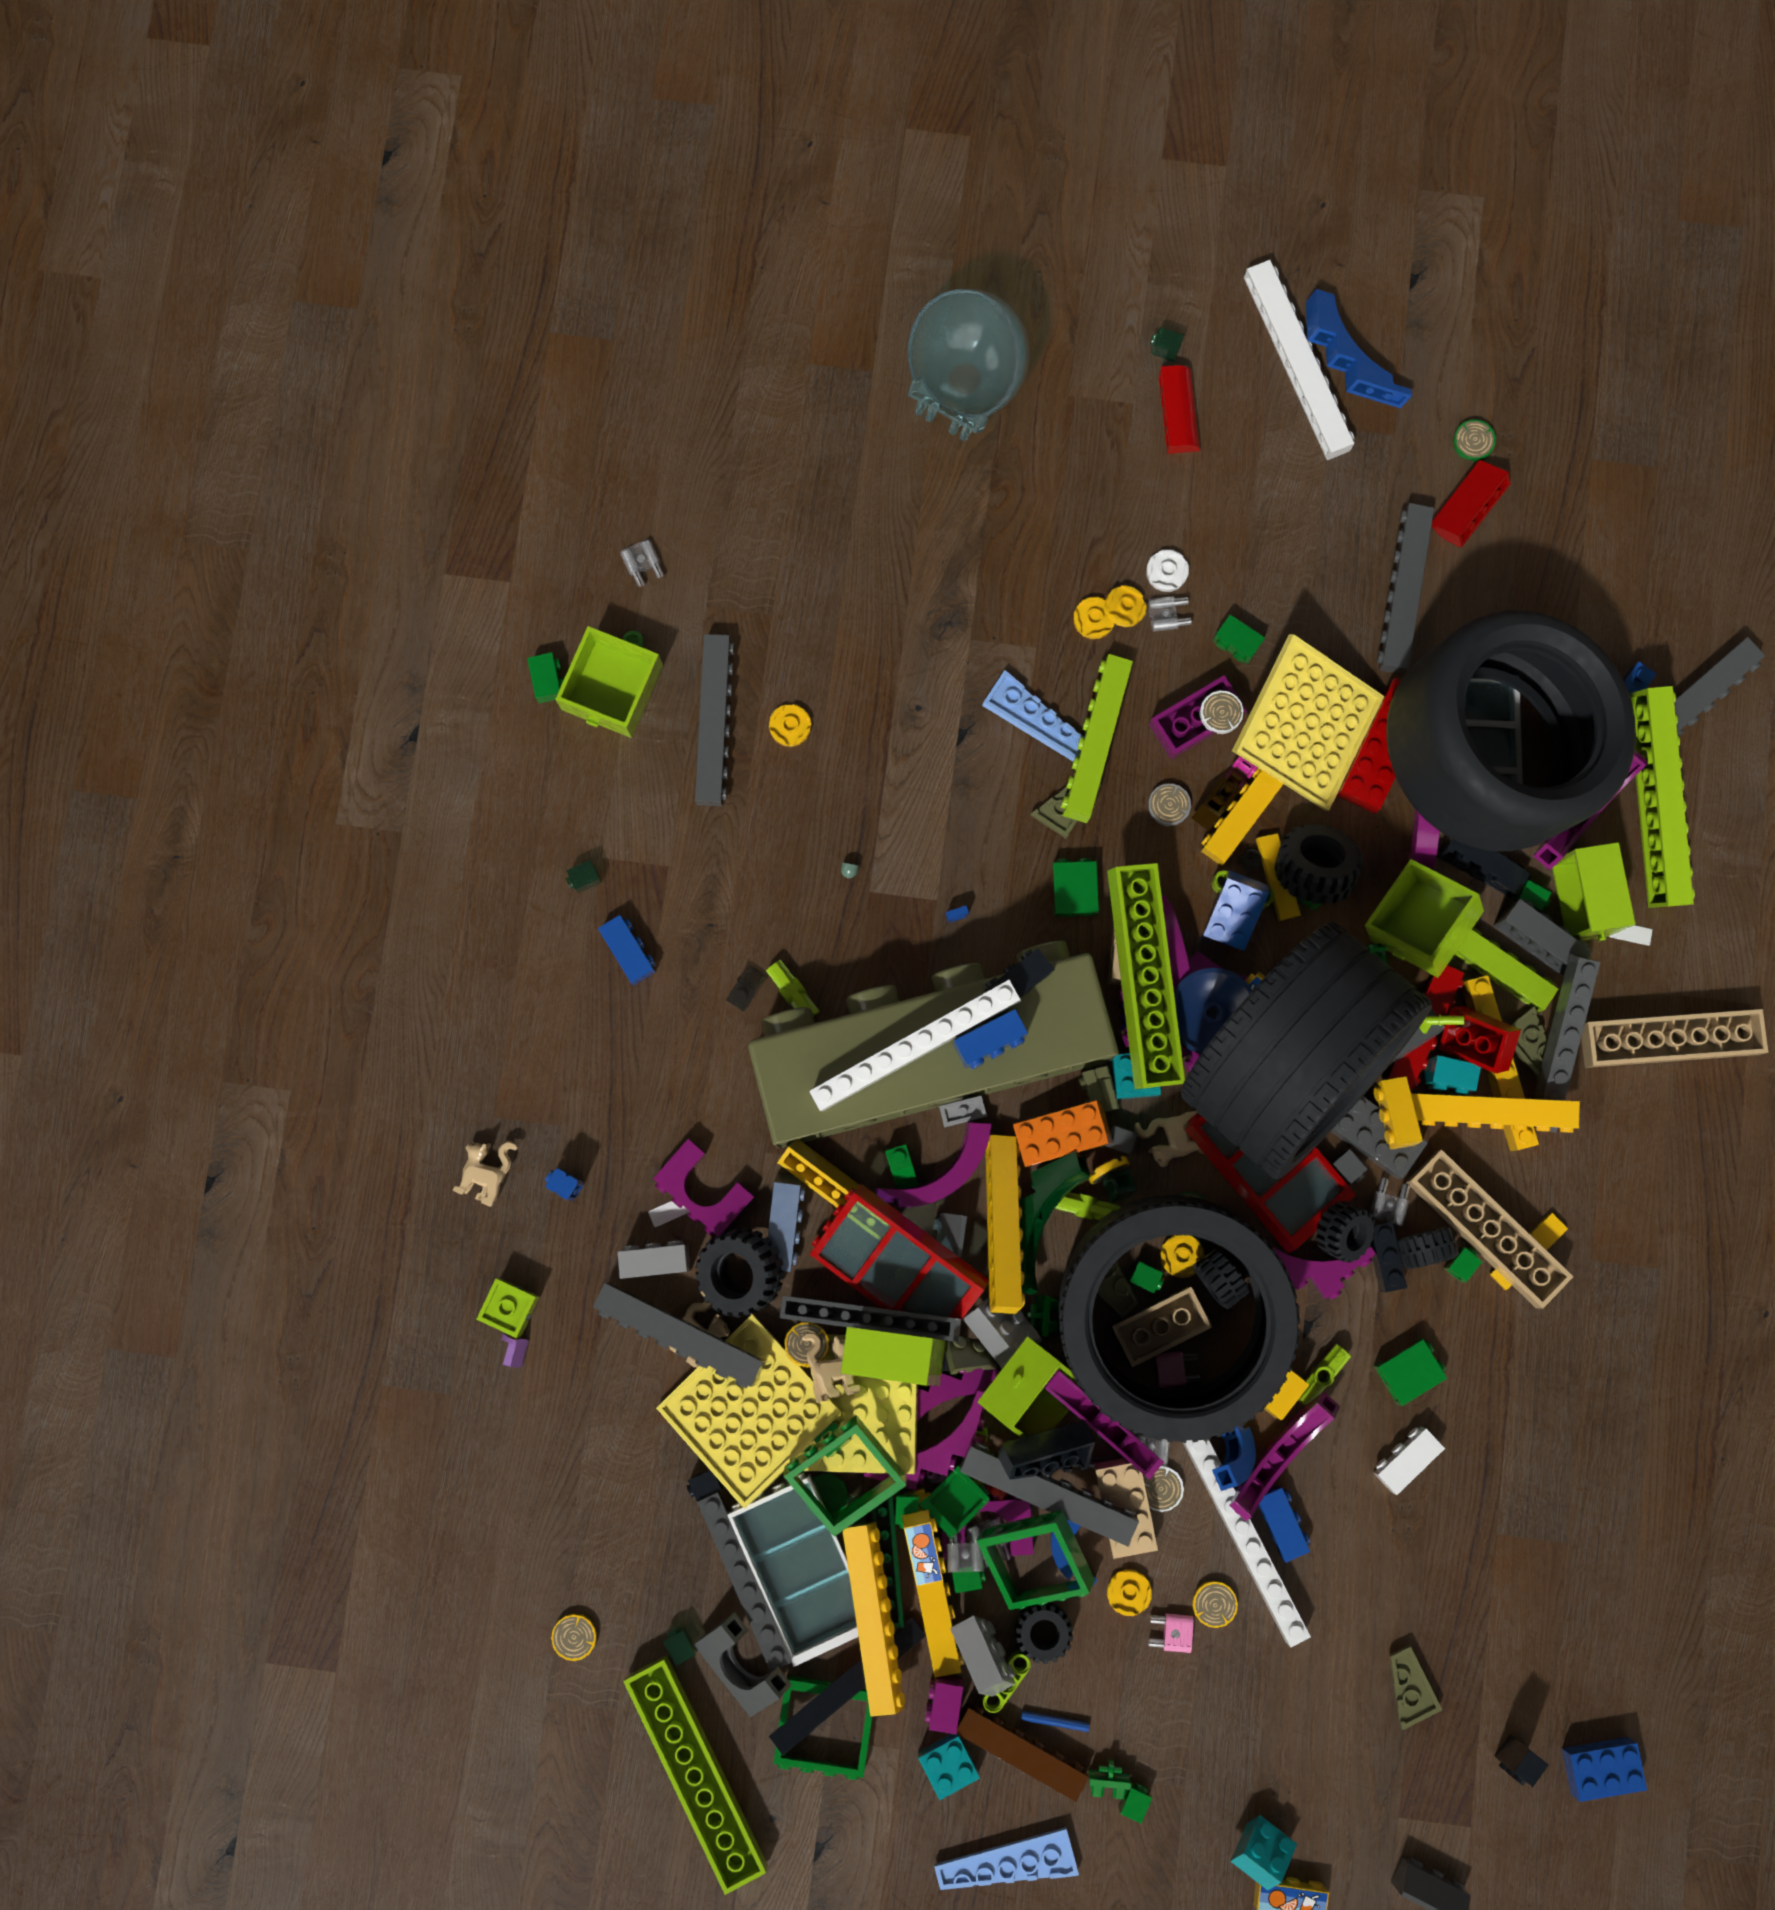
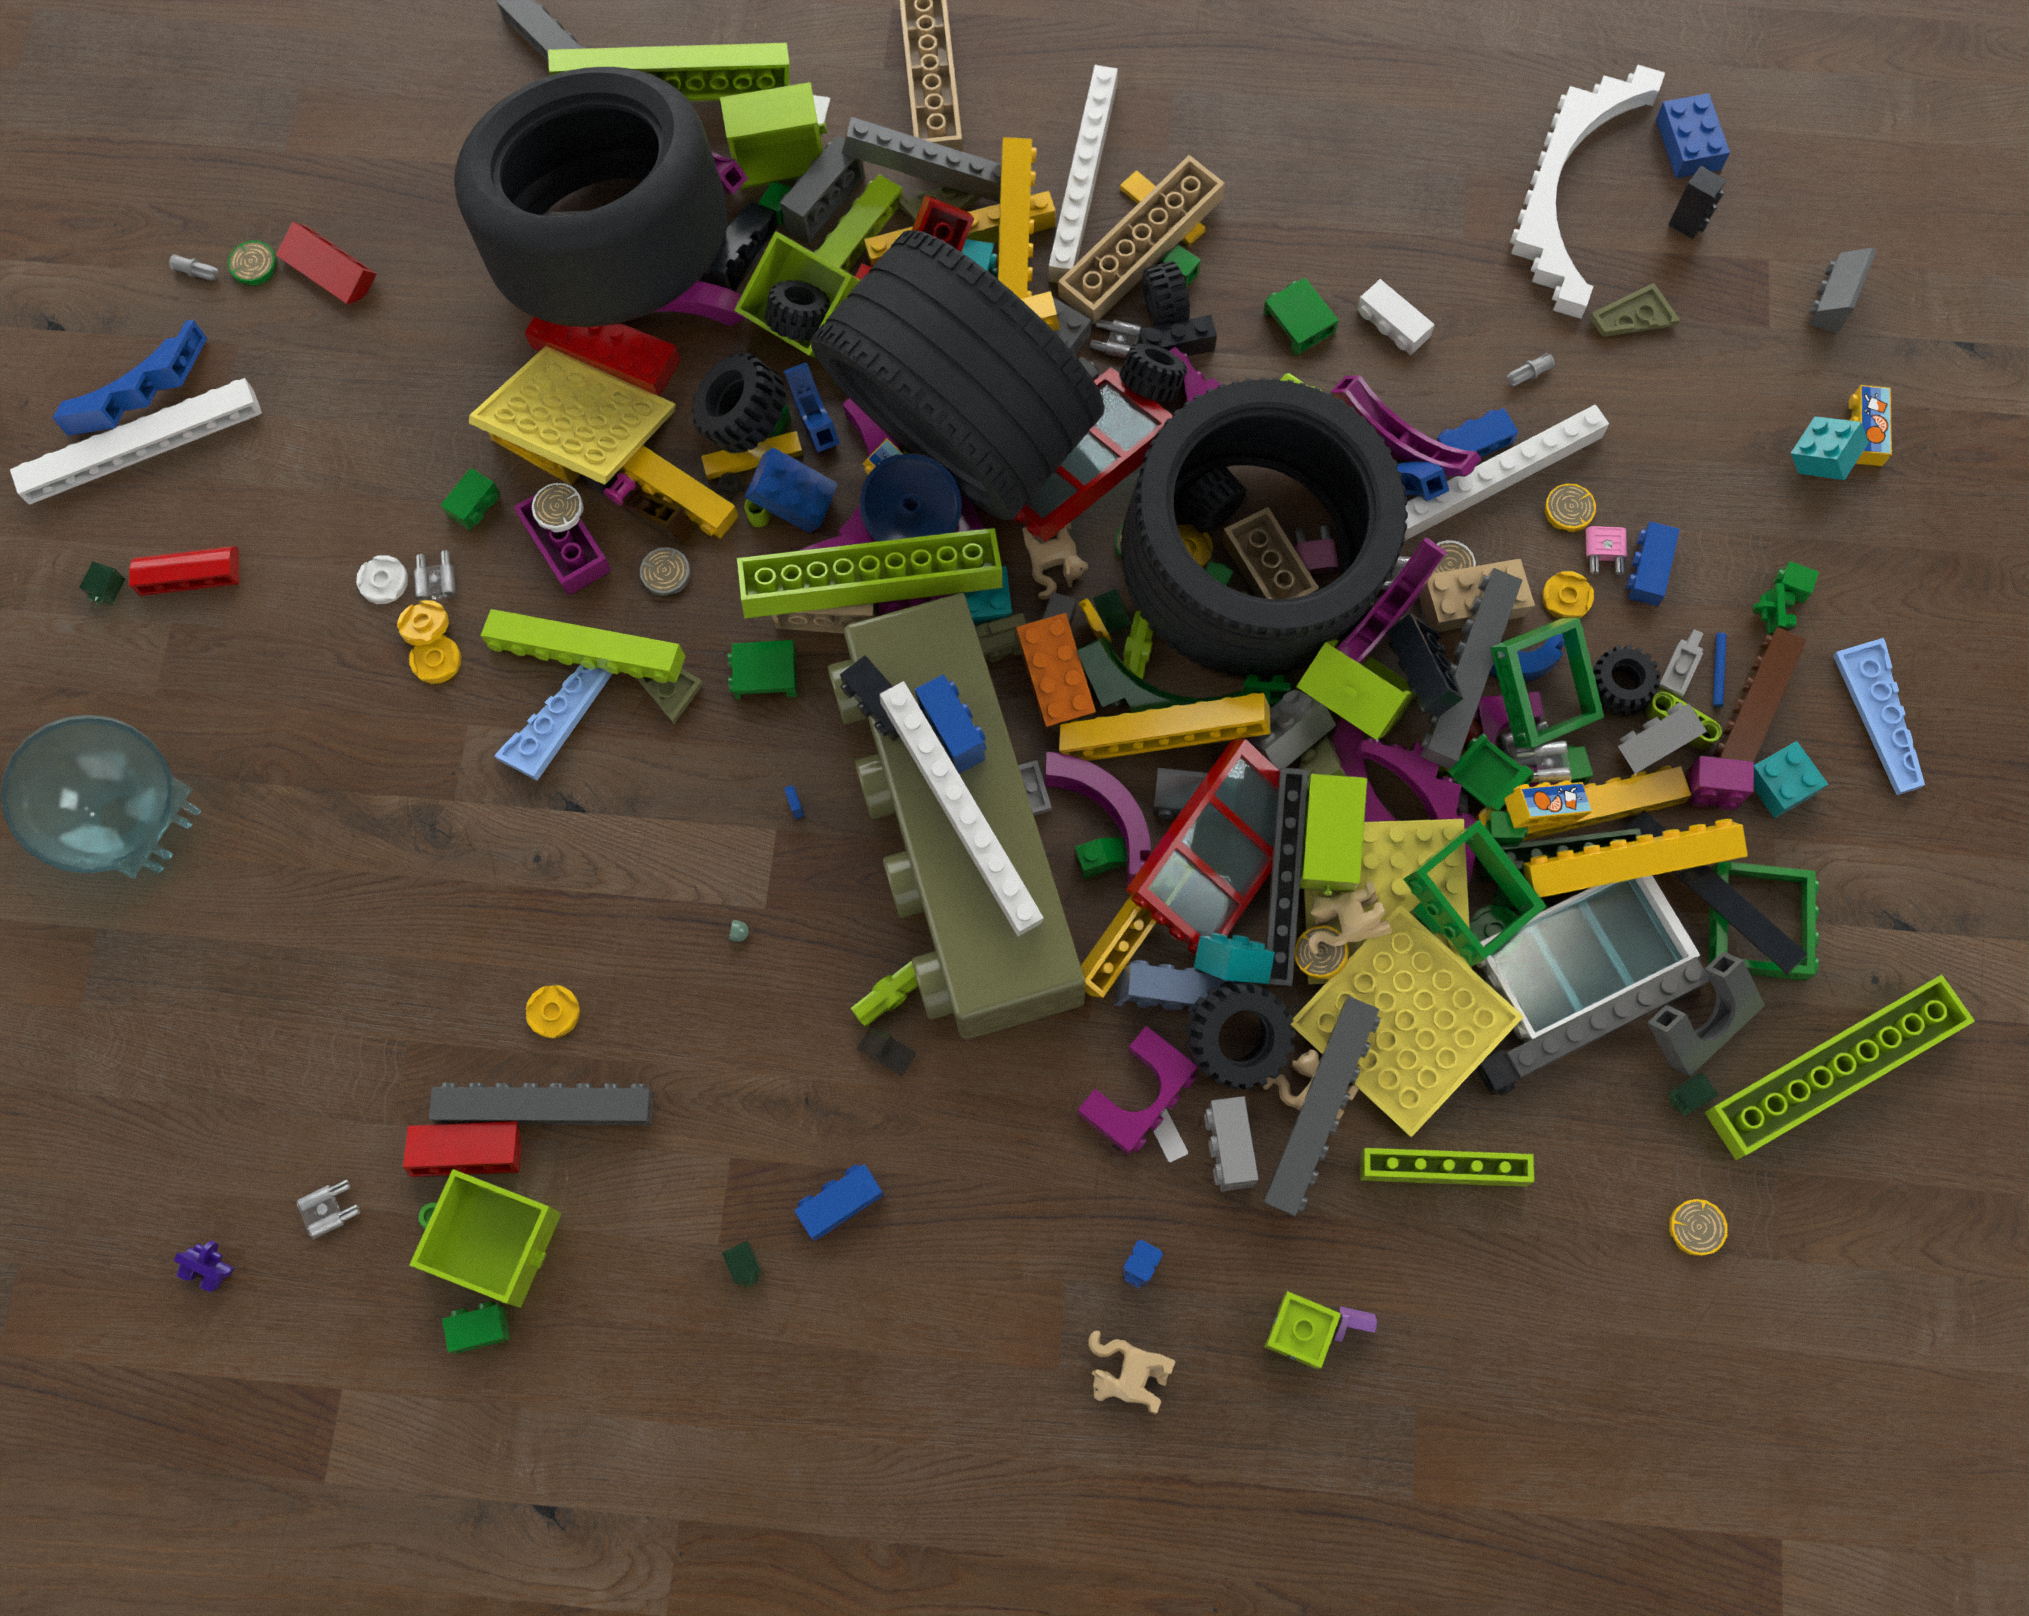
camera: 90 degrees left, 10 degrees down
(605, 474) = (206, 1262): none -> dark purple hips
(628, 1434) = (1446, 1167): none -> lime brick
(682, 661) = (462, 1147): none -> red brick
(802, 1271) = (1234, 958): none -> teal brick
(1058, 1687) = (1682, 665): none -> light grey hinge
(1156, 1672) = (1652, 563): none -> blue brick
(1294, 935) = (810, 408): none -> blue arch
(1353, 1583) = (1531, 369): none -> light grey axle
(1406, 588) = (421, 327): dark grey brick -> none
(1422, 917) = (796, 309): none -> black tyre
(1468, 391) = (193, 267): none -> light grey axle
(1563, 1178) = (1083, 172): none -> white brick
(1627, 1659) = (1539, 230): none -> white arch

